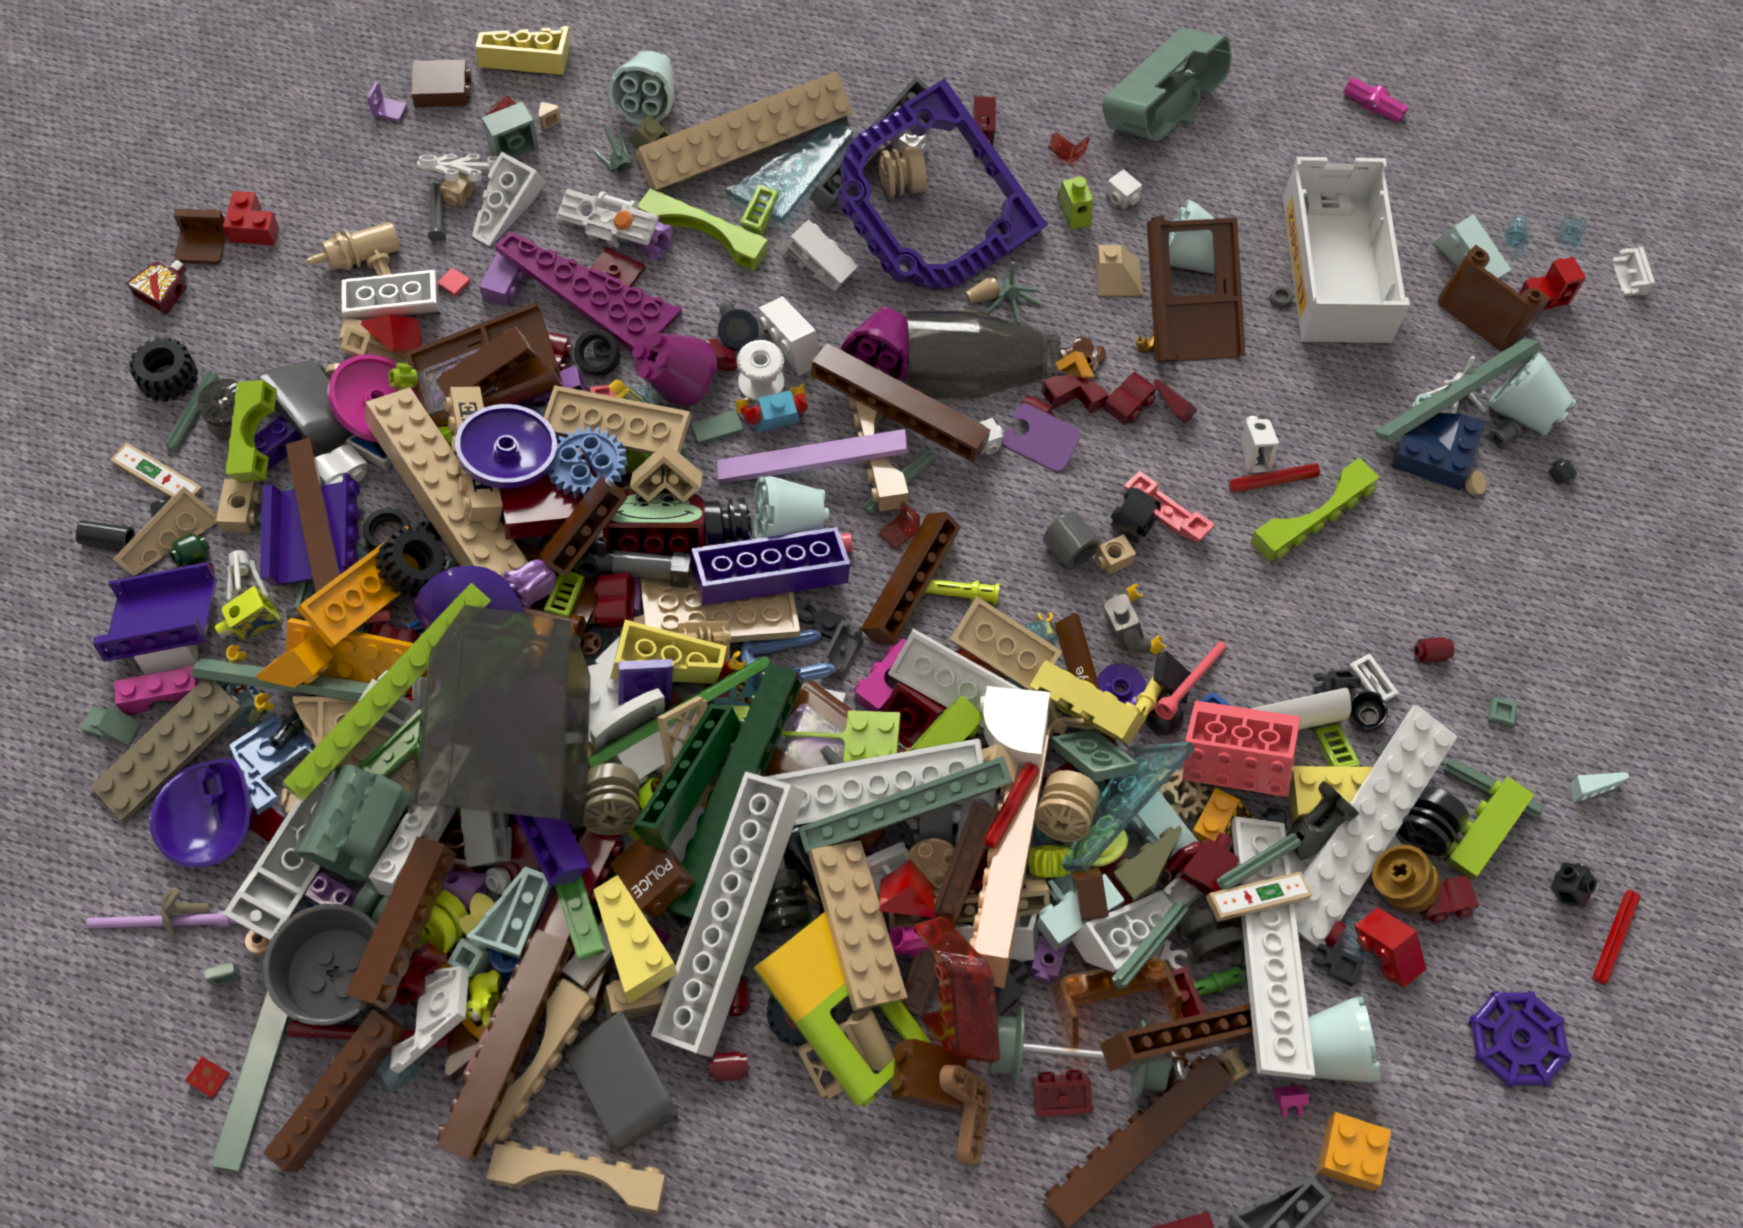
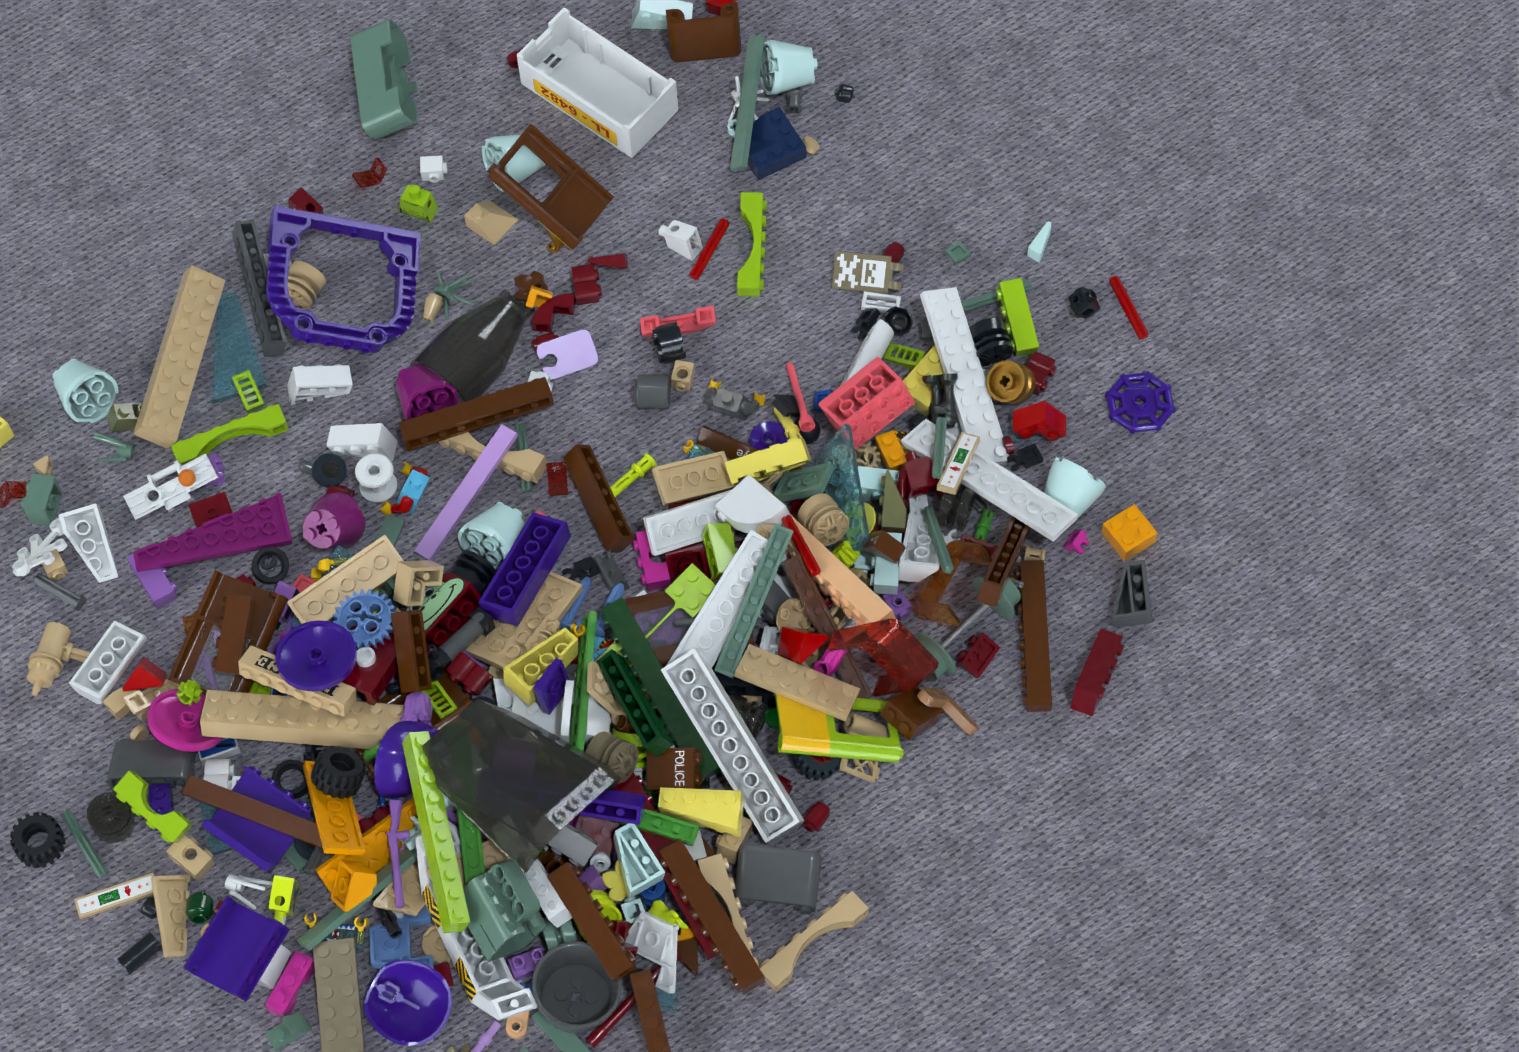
camera: 45 degrees left, 0 degrees up
(370, 665) = (394, 836): none -> medium lavender piece
(454, 282) = (128, 616): coral tile -> none
(545, 491) = (366, 657): none -> white tile
(1281, 297) = (591, 143): dark grey tile -> none
(1390, 638) = (865, 272): none -> dark tan tile

